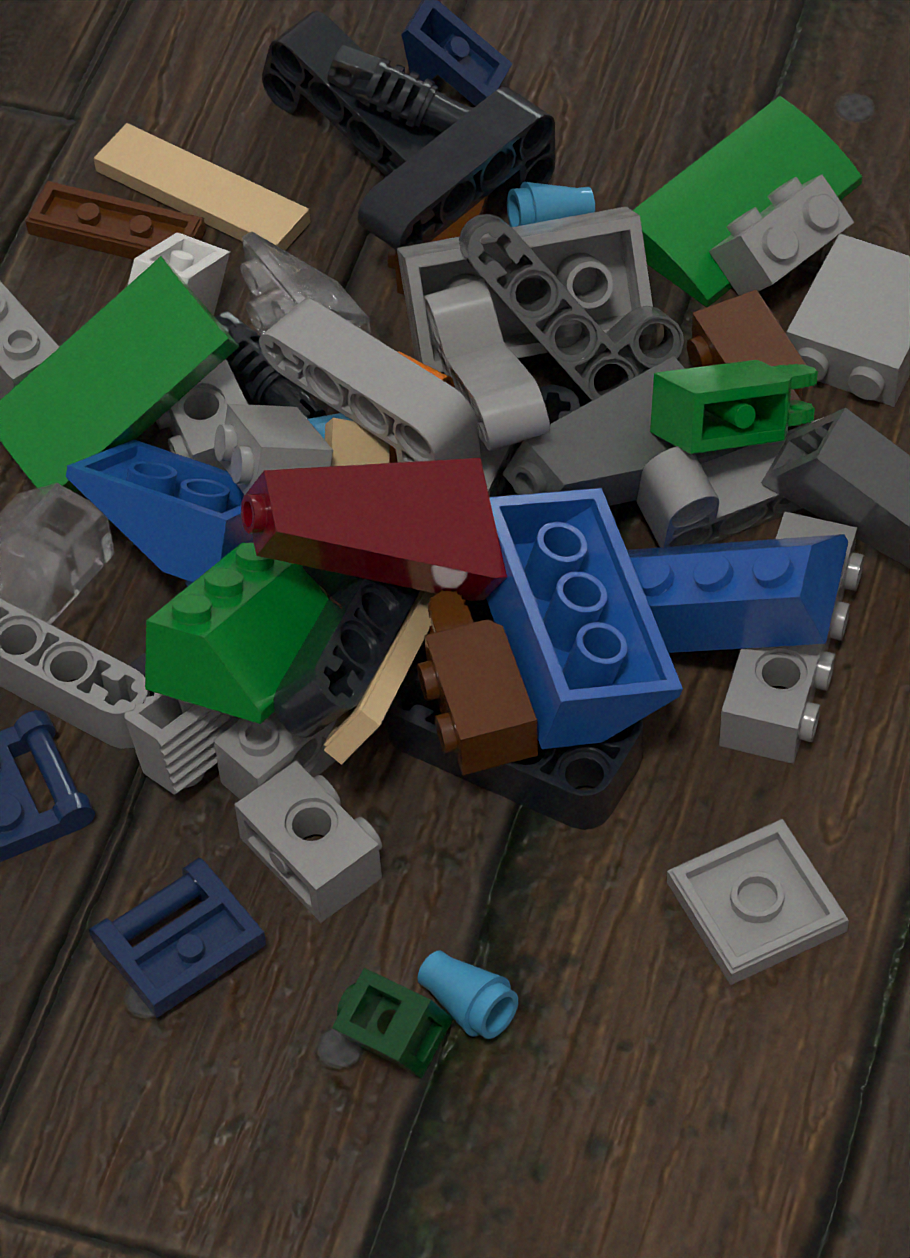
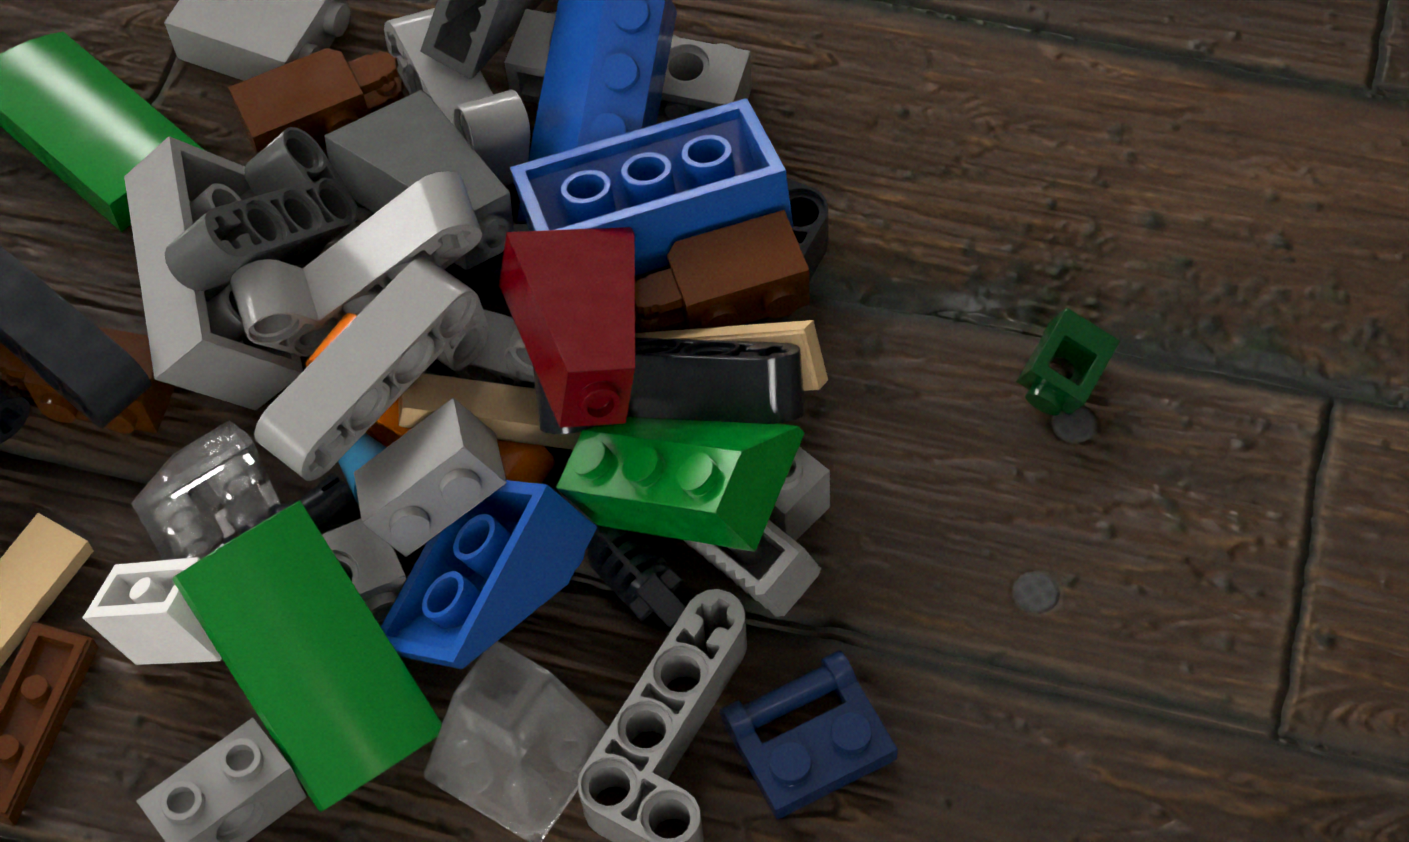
camera: 90 degrees left, 5 degrees up
(186, 951) = (996, 544): dark blue plate -> none
(318, 872) = (896, 418): light grey brick -> none
(471, 995) = (1025, 308): dark azure cone -> none
(547, 202) = (74, 279): dark azure cone -> none
(729, 404) = (407, 75): green hinge -> none
(757, 901) = (903, 107): light grey tile -> none
(781, 236) = (154, 75): light grey brick -> none

